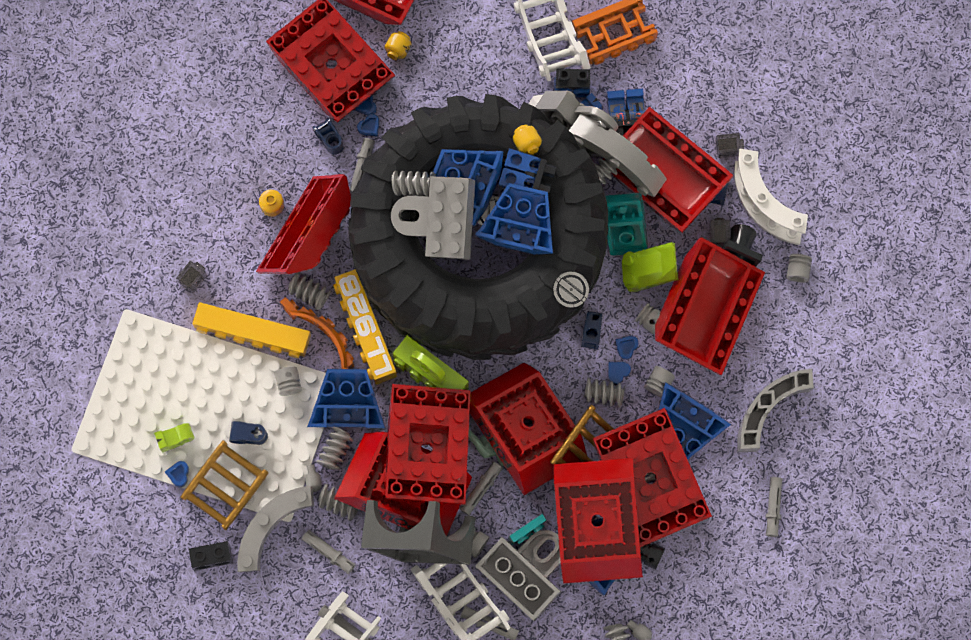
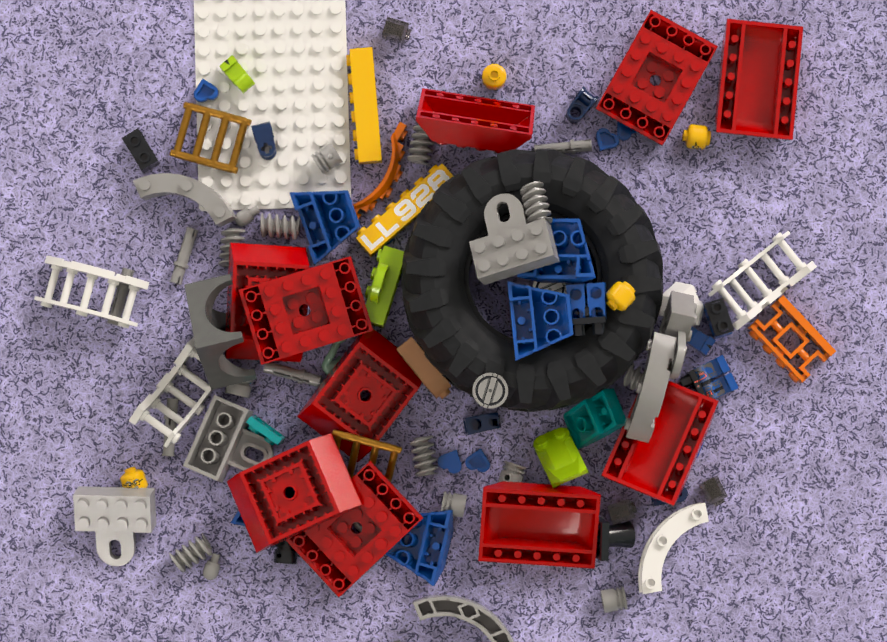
camera: 70 degrees right, 10 degrees up
(523, 358) = (425, 371): none -> medium nougat window

